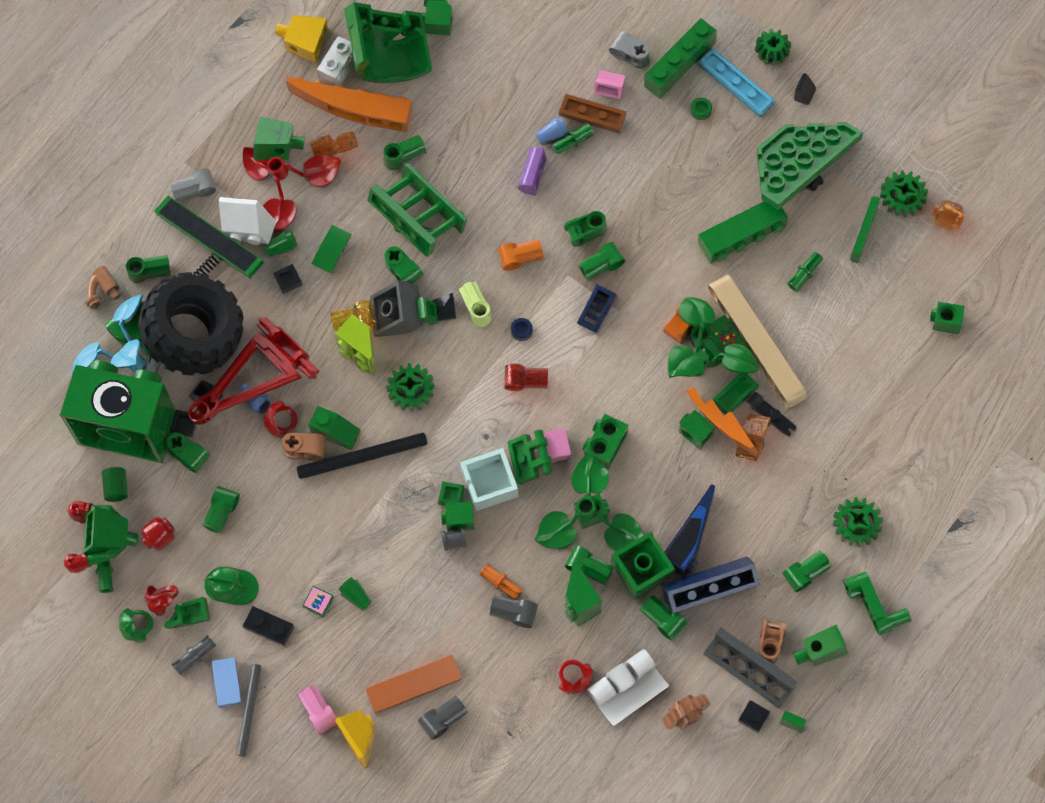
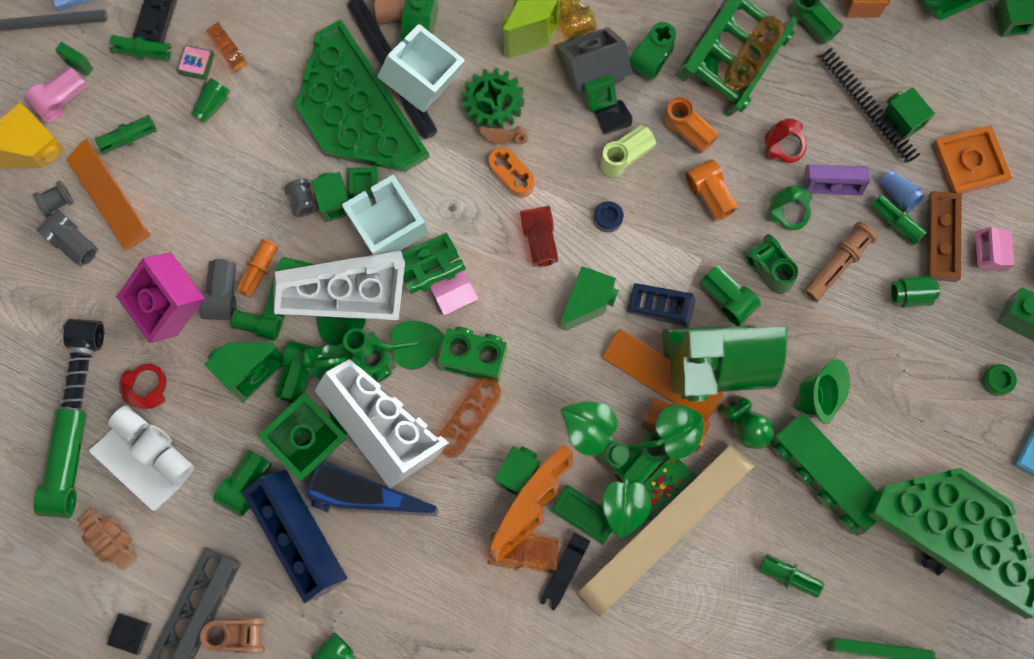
camera: 75 degrees right, 5 degrees up
(292, 691) = (74, 59): none -> green tile
(295, 640) = (140, 47): none -> green pin
(313, 573) = (226, 47): none -> clear orange beam
(366, 662) = (125, 134): none -> green pin
(378, 428) = (420, 68): none -> light aqua piece
(388, 490) = (352, 108): none -> green plate
(407, 723) = (53, 198): none -> dark grey bush
(425, 189) = (764, 46): none -> clear orange beam
(440, 387) = (499, 135): none -> nougat piece
(468, 256) = (691, 127): none -> orange piece
(472, 392) = (515, 167): none -> orange beam
(479, 134) = (899, 147): none -> black piece
(490, 199) = (780, 131): none -> red piece
(496, 111) = (908, 112): none -> green brick
(513, 558) = (268, 324): none -> green beam
(513, 647) = (160, 297): none -> dark pink brick
(539, 513) = (345, 288): none -> white wedge
(540, 80) = (972, 160): none -> orange tile
(540, 204) = (785, 196): none -> green piece
(581, 355) = (589, 298): none -> green slope
(587, 537) = (320, 360): none -> green piece
(589, 177) = (847, 252): none -> nougat pin
(628, 143) = (915, 291): none -> green brick
(640, 750) = (57, 493): none -> green piece
(644, 510) = (378, 424): none -> white wedge
(647, 320) = (652, 371): none -> orange slope
(651, 277) = (724, 359): none -> green piece
(665, 462) = (489, 403): none -> clear orange beam
(686, 219) = (824, 392): none -> green piece
(699, 271) = (749, 427): none -> green piece

